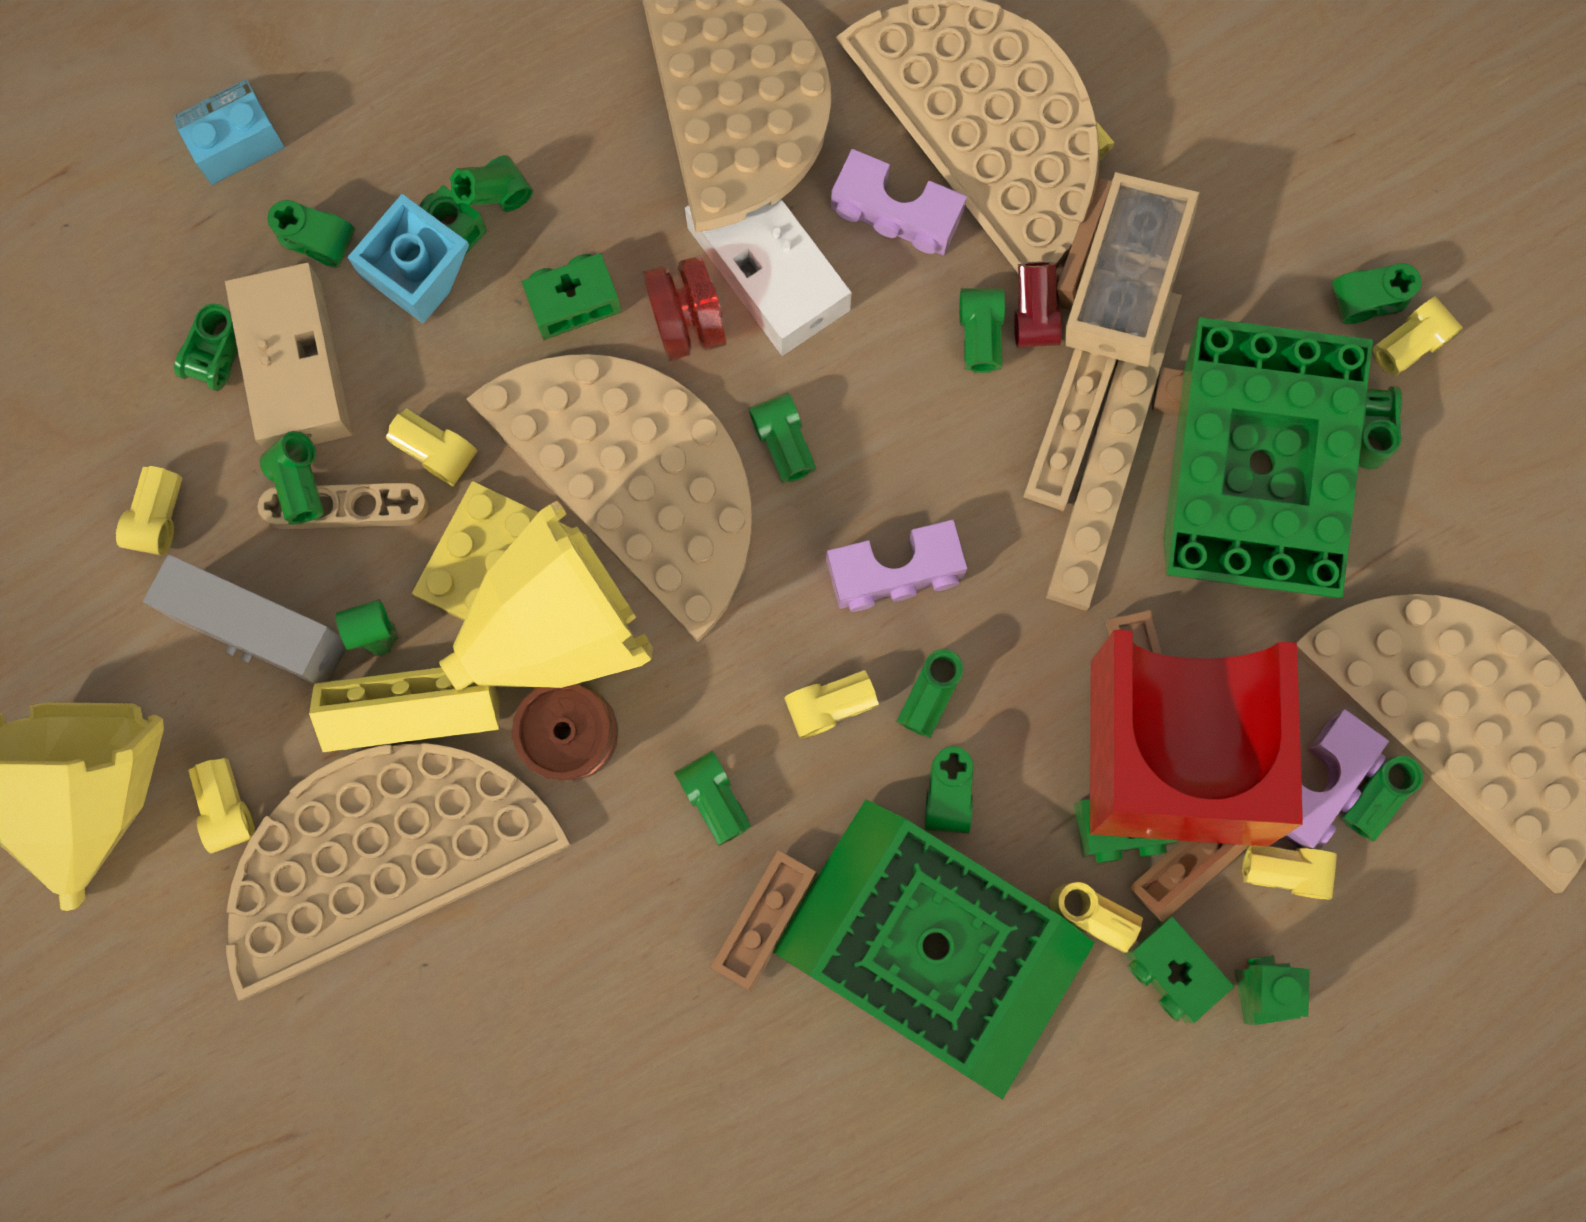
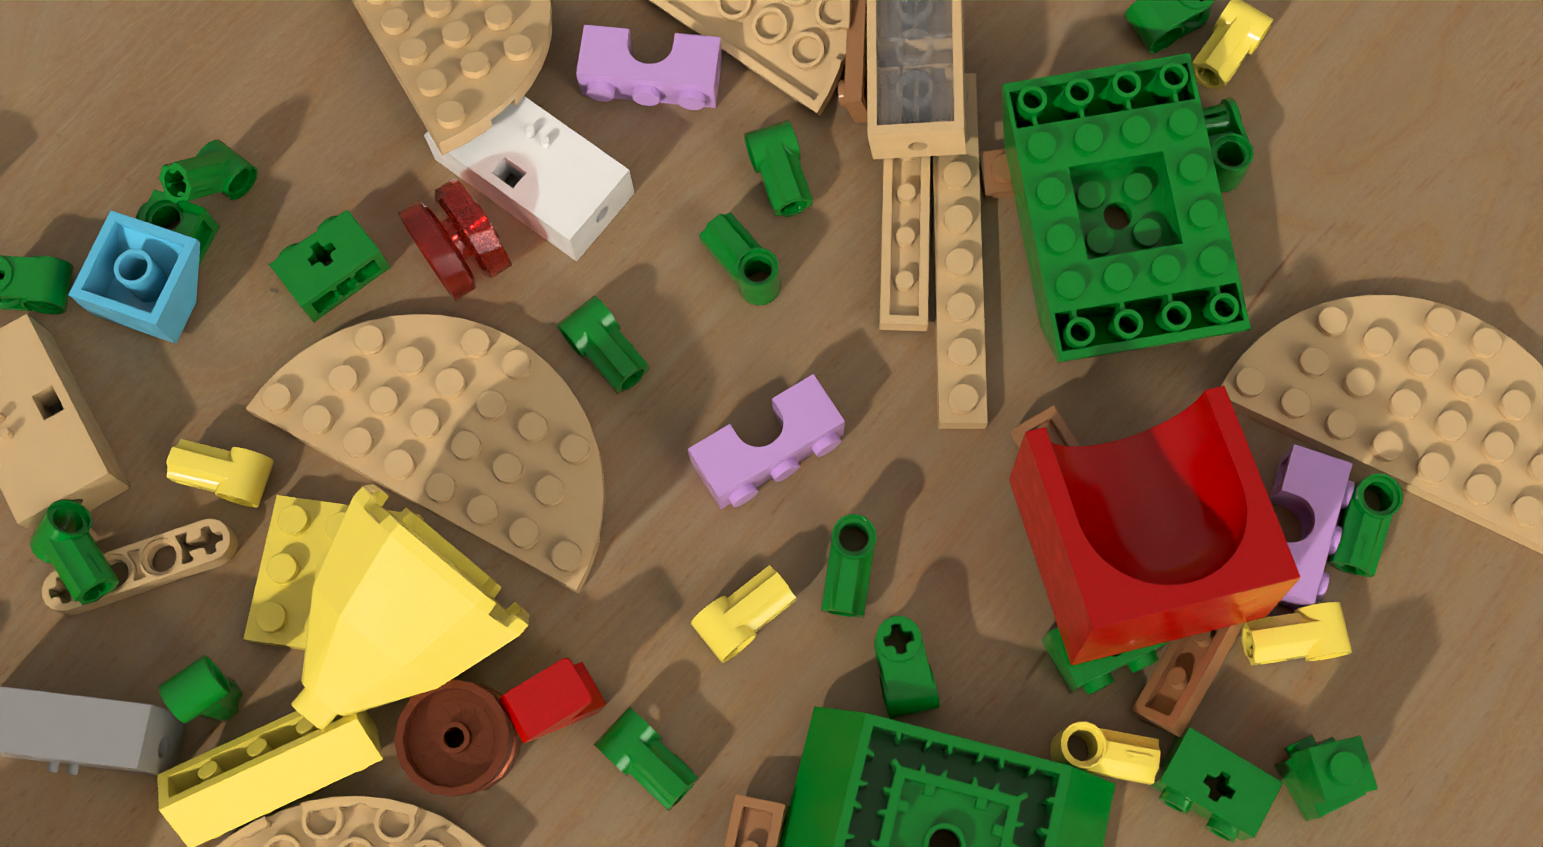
camera: 15 degrees left, 5 degrees down
(651, 725) = (552, 700): none -> red slope
(924, 397) = (741, 257): none -> green piece
(1037, 318) = (834, 139): dark red piece -> none

